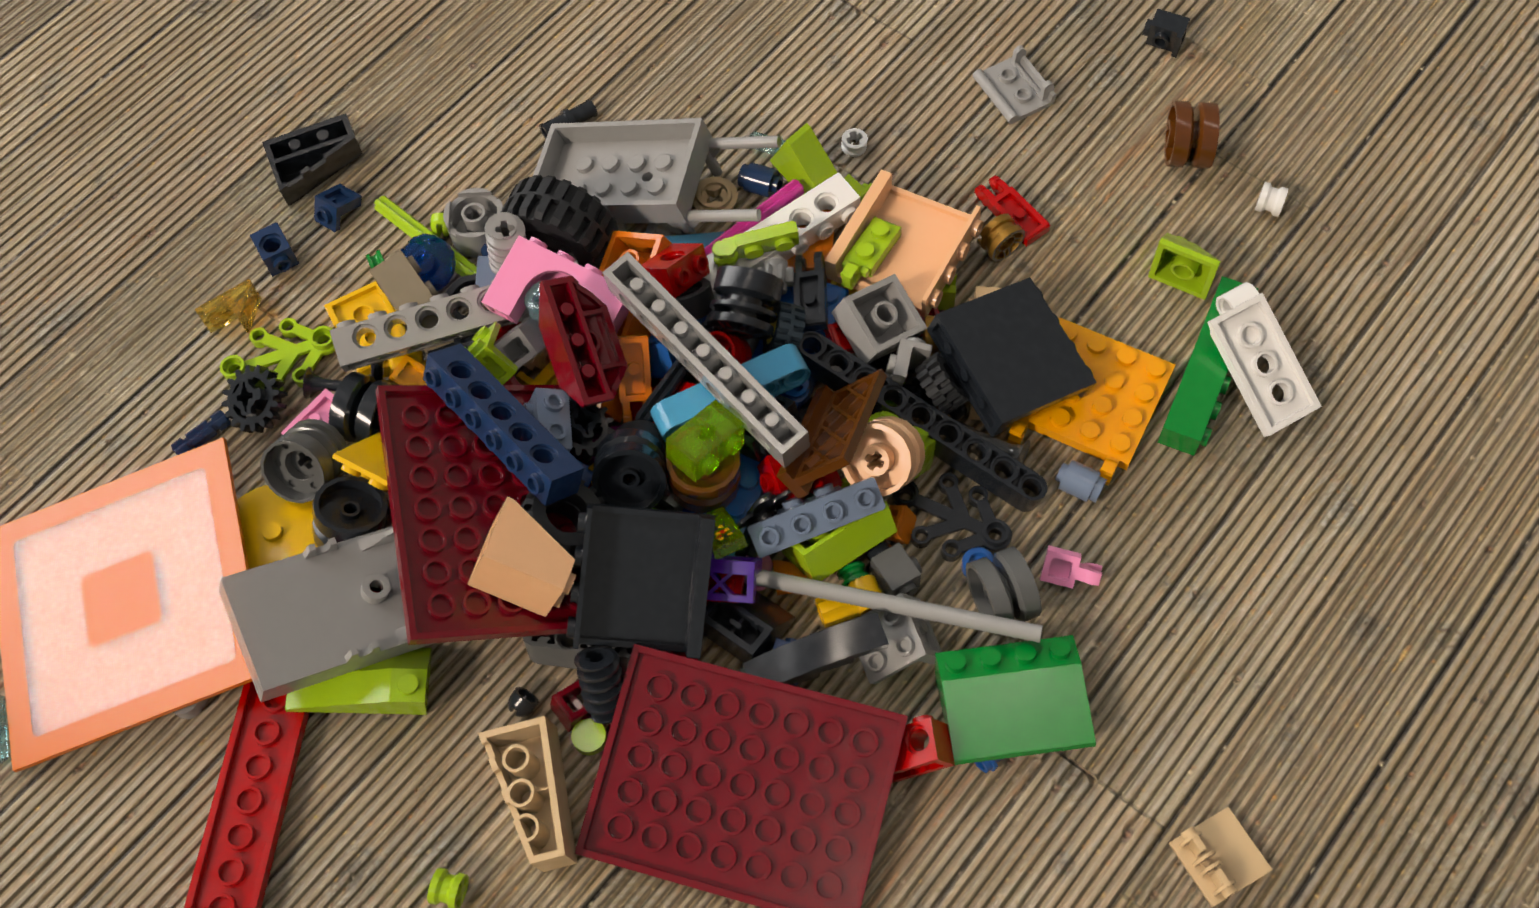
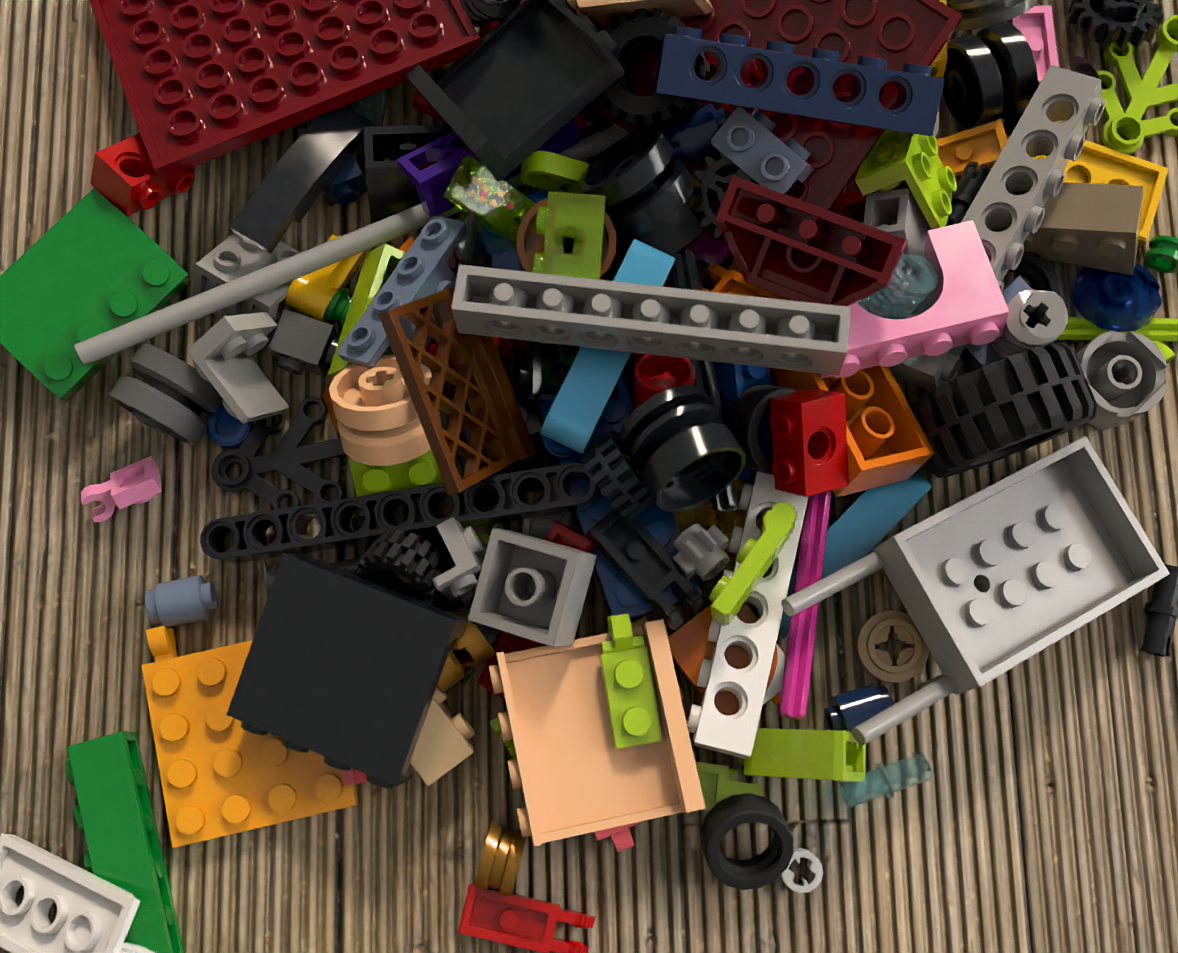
camera: 130 degrees right, 15 degrees up
(867, 157) = (759, 869): none -> black tyre
(948, 566) = (226, 363): none -> light grey bracket

